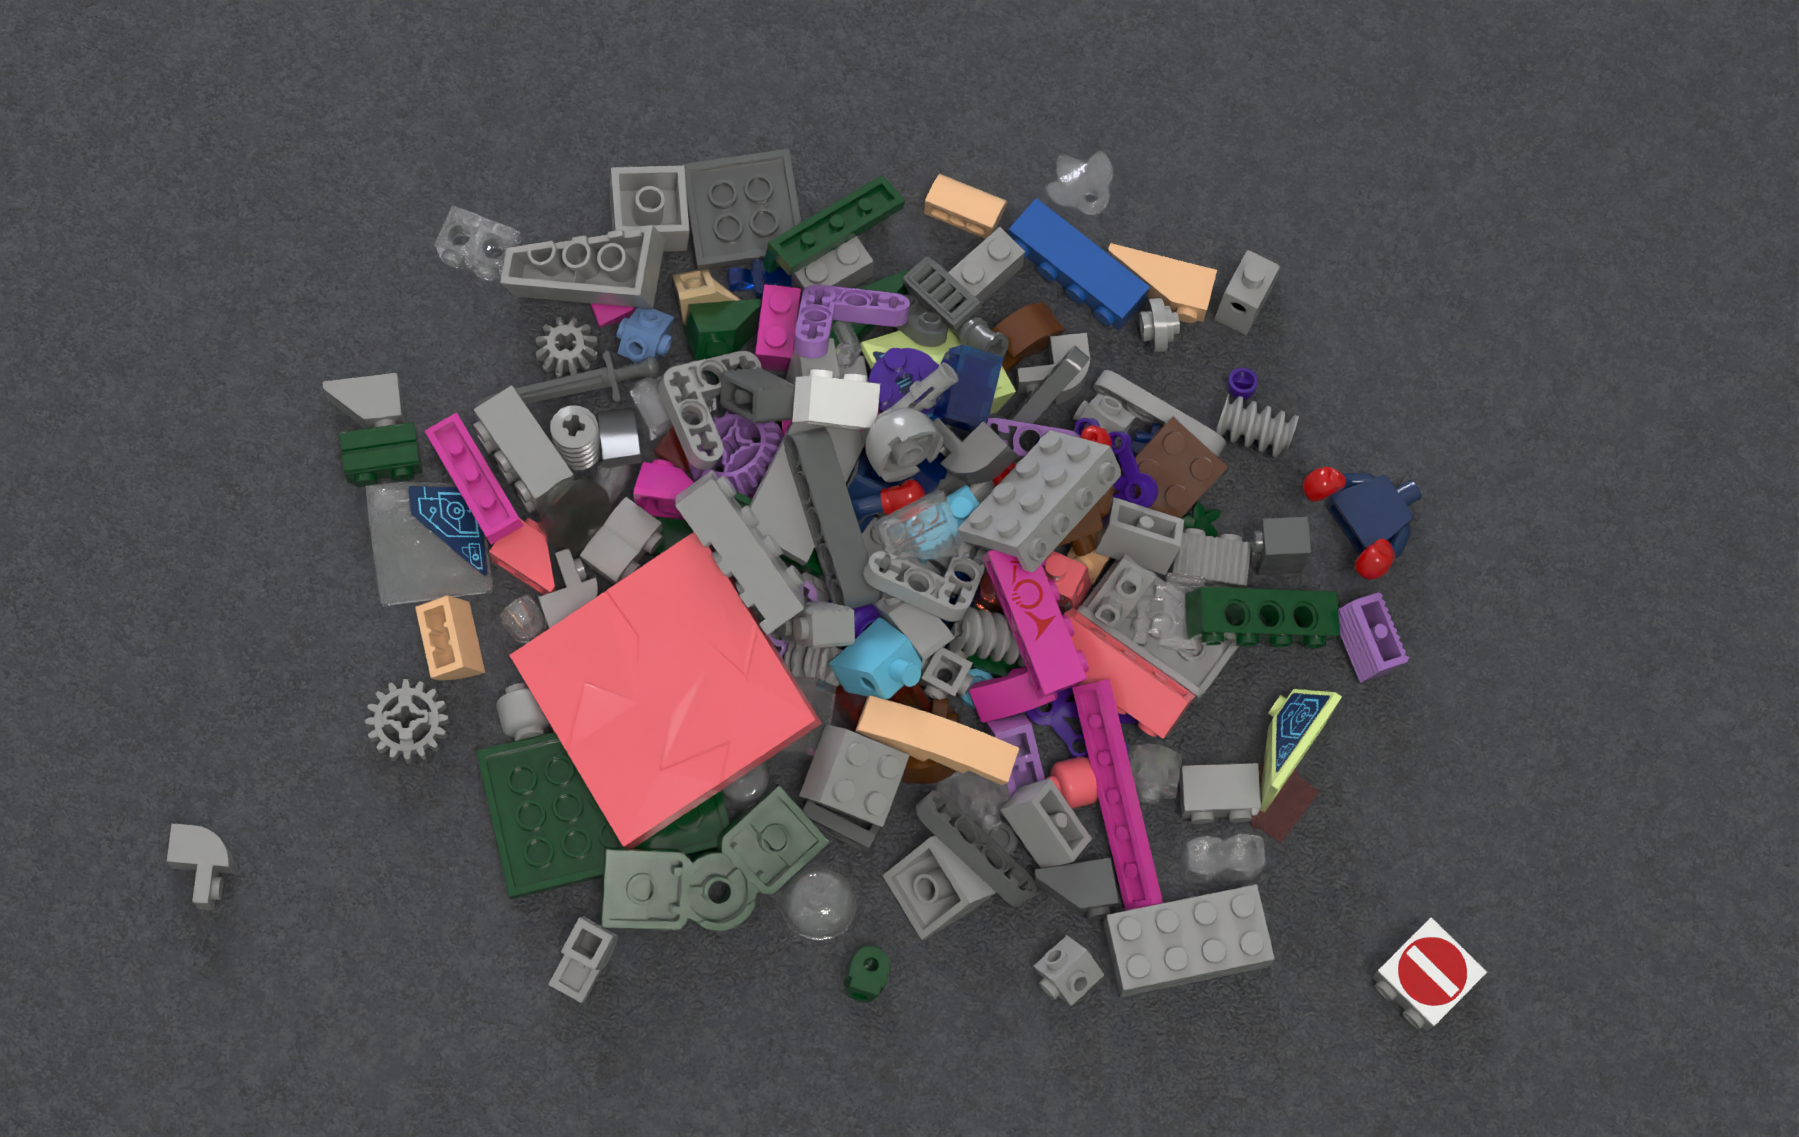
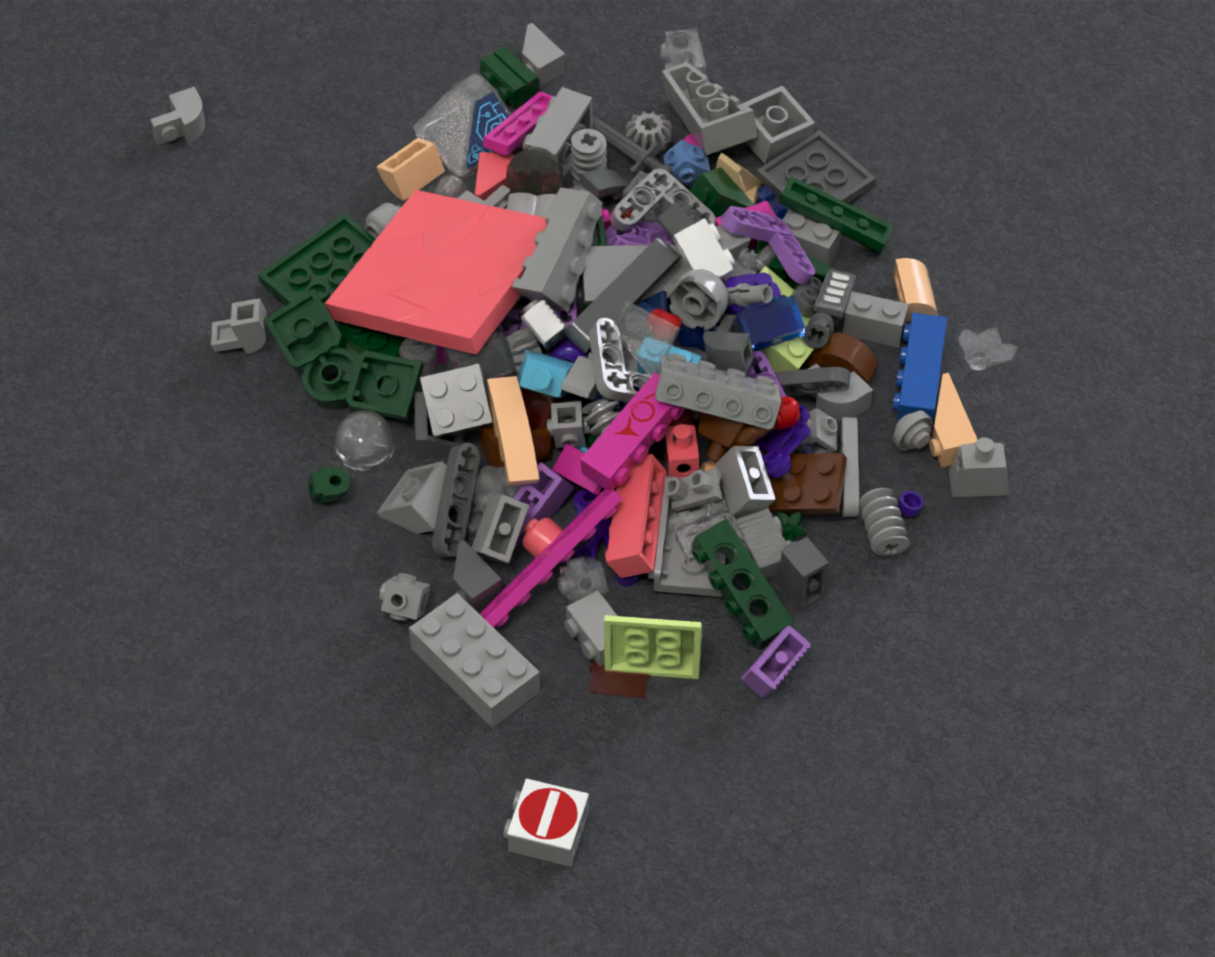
camera: 65 degrees right, 20 degrees down
(422, 721) = (341, 172): light grey gear -> none
(1234, 858) = (548, 649): clear brick -> none
(1369, 514) = (873, 620): dark blue torso -> none

